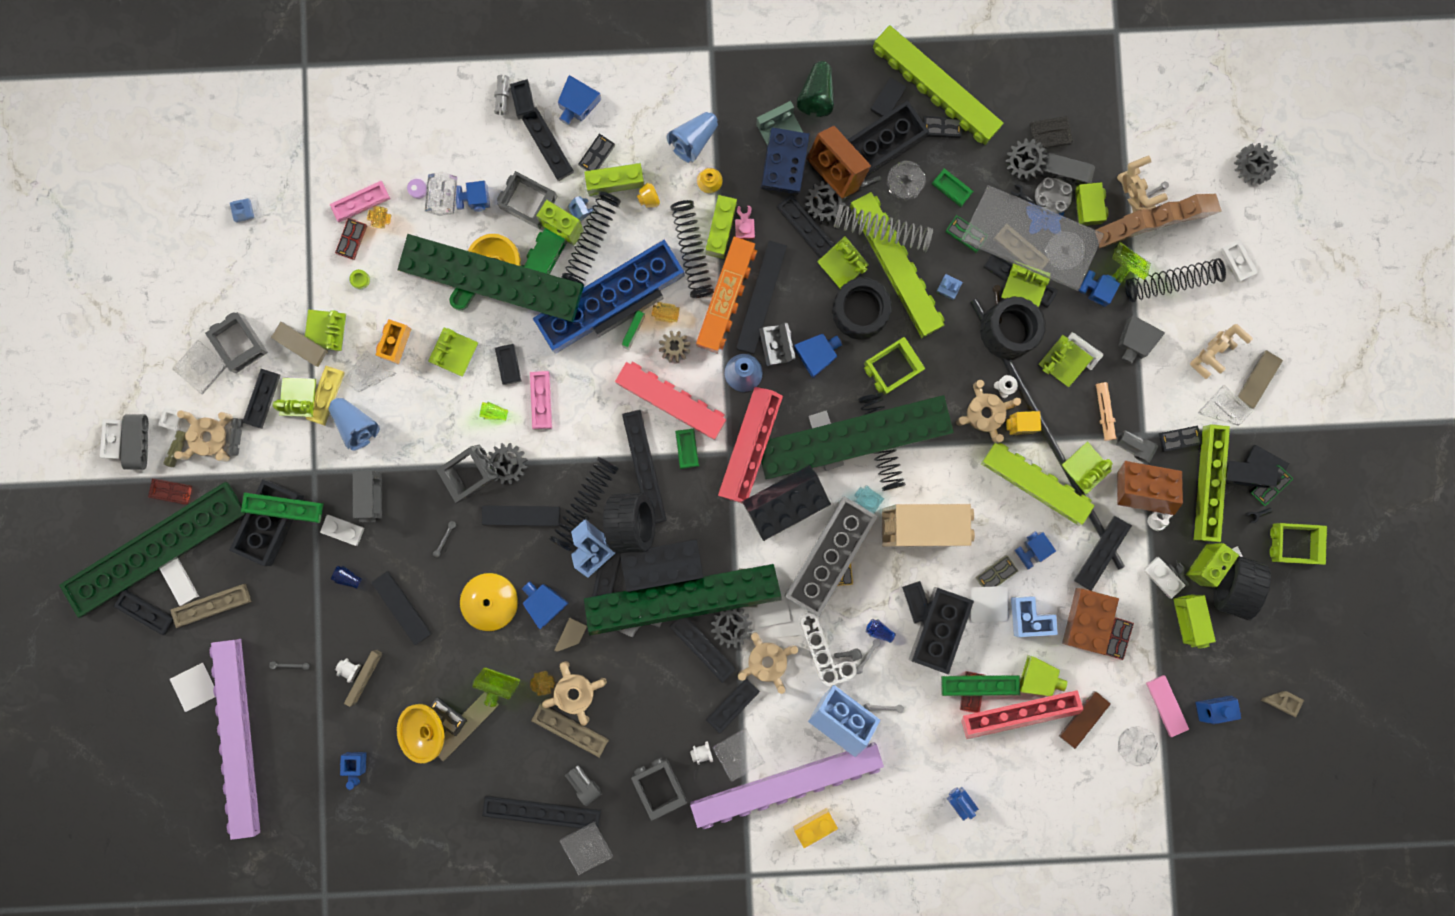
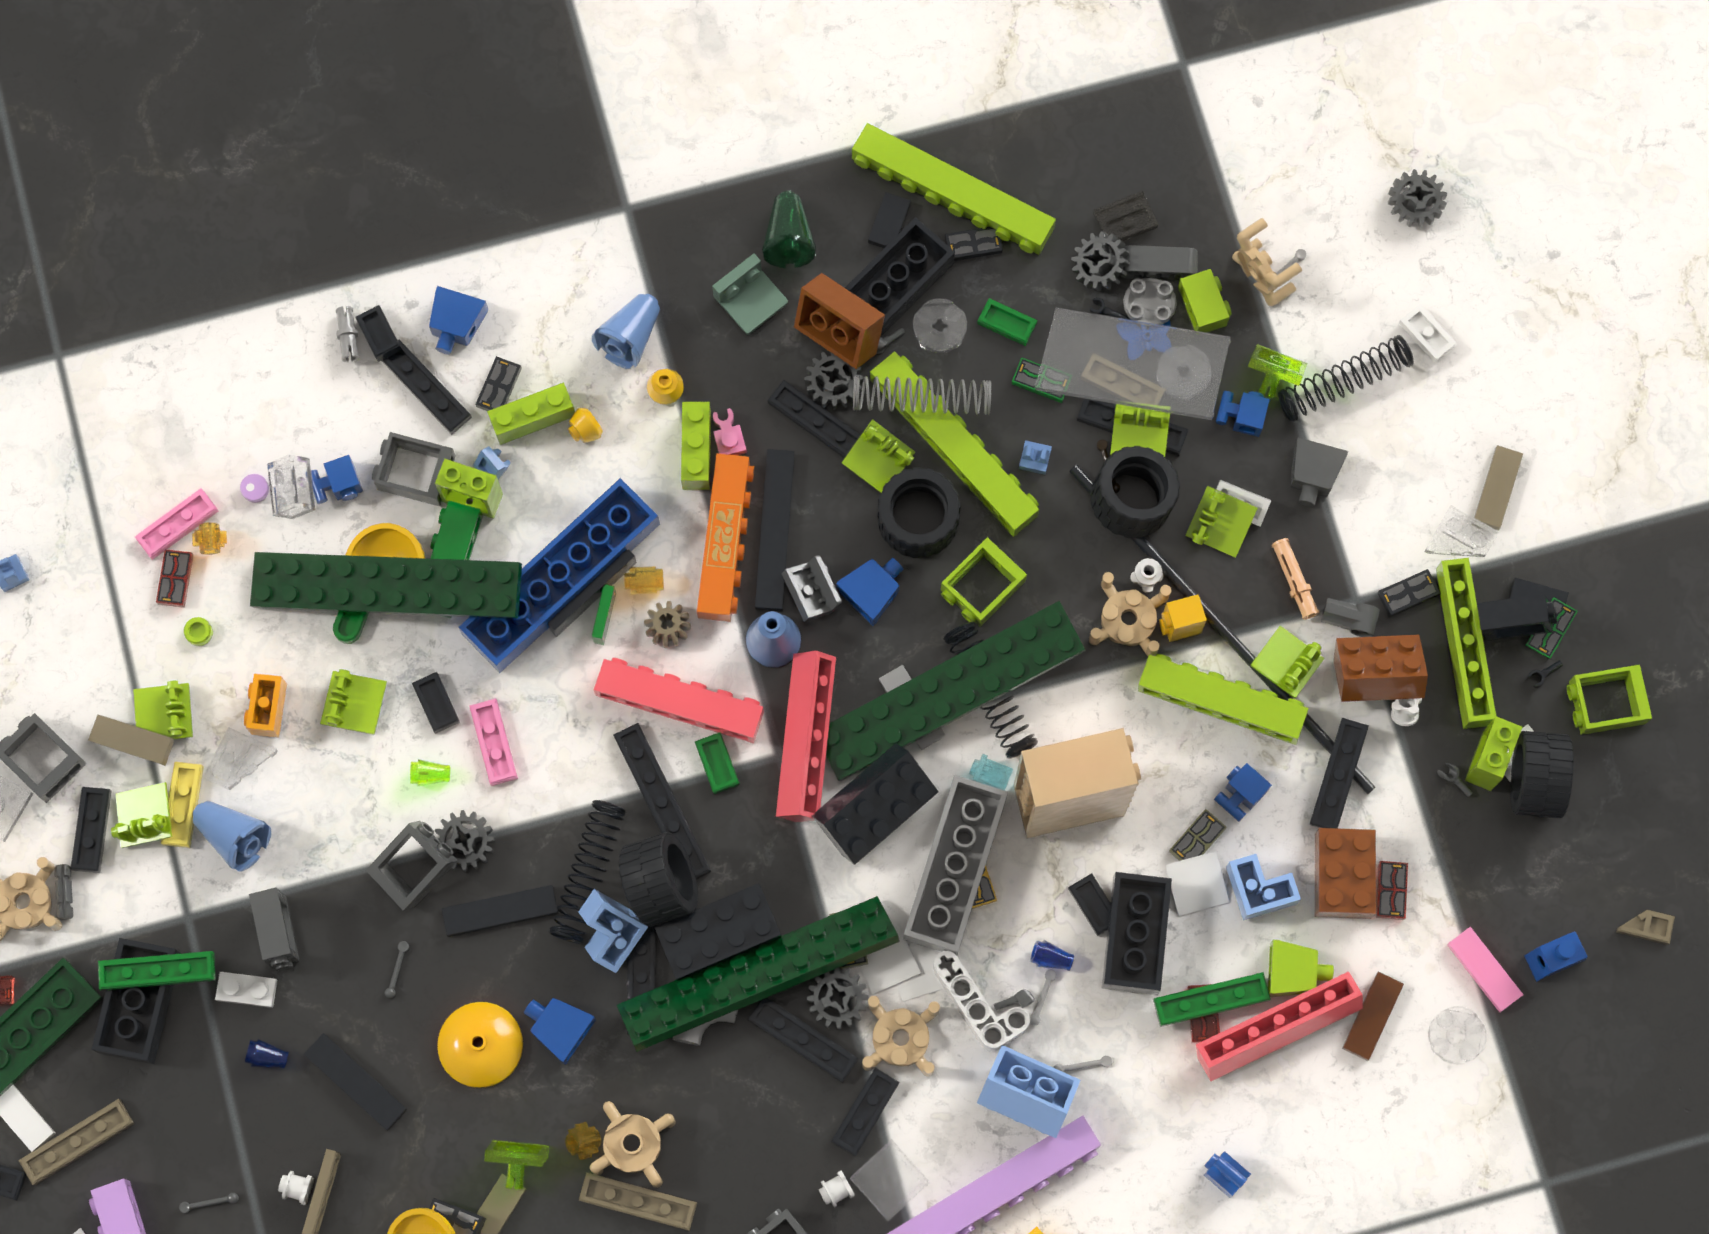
camera: 10 degrees left, 10 degrees down
(571, 635) = (610, 1063): dark tan tile -> none
(615, 202) = (533, 446): black piece -> none
(693, 294) = (682, 538): black piece -> none
(785, 160) = (764, 336): dark blue piece -> none
(1164, 577) = (1435, 790): white plate -> none
(1167, 214) = (1309, 290): medium nougat arch -> none
(1194, 620) = (1489, 837): lime window -> none
(1218, 344) = (1431, 441): tan plate -> none

